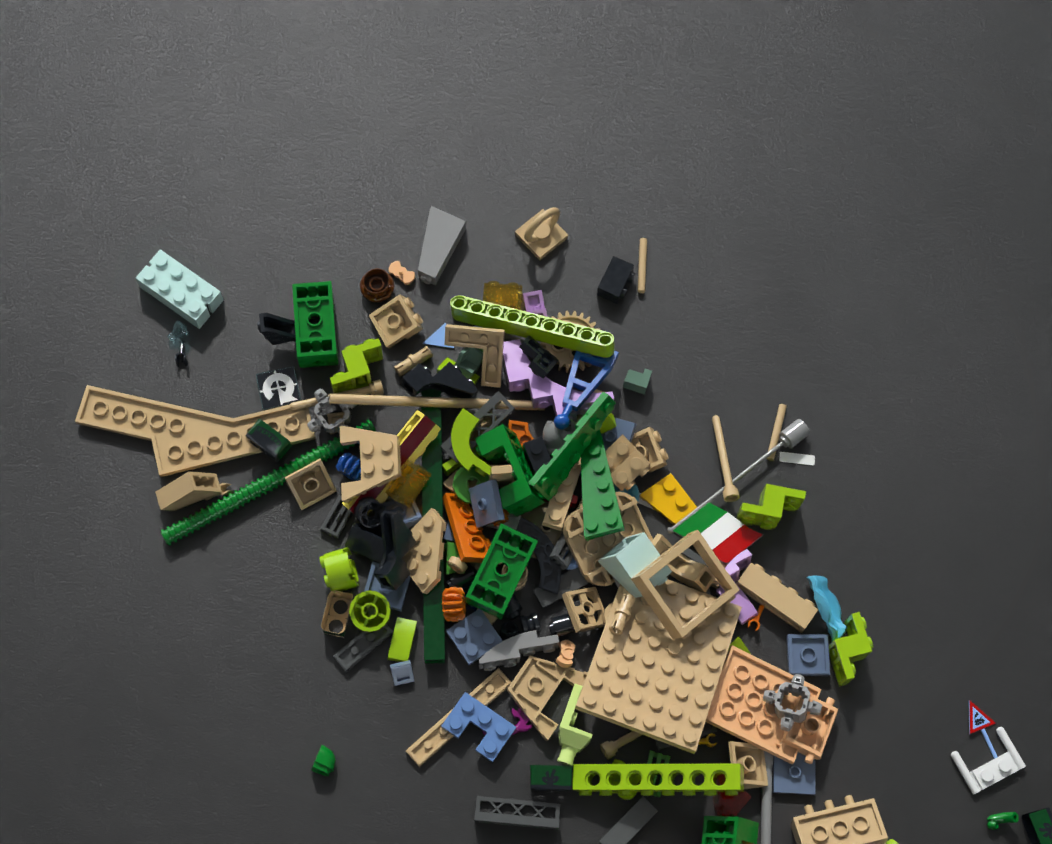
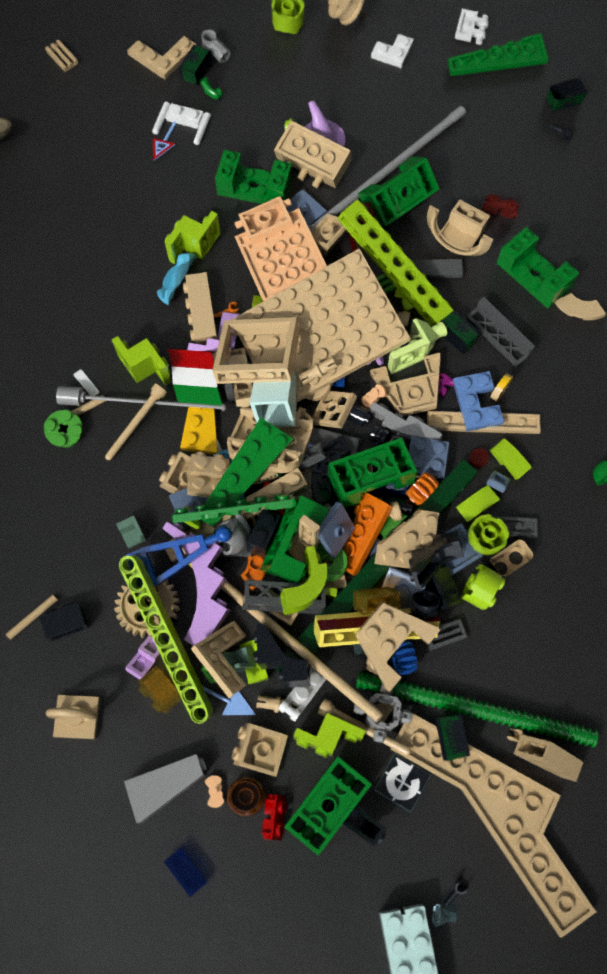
camera: 130 degrees left, 0 degrees up
(310, 484) = (446, 676): tan slope -> none
(348, 297) = (276, 807): none -> red hinge
(372, 211) = (185, 872): none -> clear blue plate
(398, 374) = (302, 695): none -> white plate
(409, 702) = (510, 457): none -> lime slope
(435, 680) = (479, 458): none -> clear red plate
(469, 753) = (501, 387): none -> piece
(543, 359) = (183, 603): black plate -> none
(776, 414) = (53, 424): none -> bright green plate
(787, 716) = (258, 222): light grey piece -> none
(808, 654) = (220, 262): sand blue plate -> none
(880, 746) = (235, 180): none -> green plate

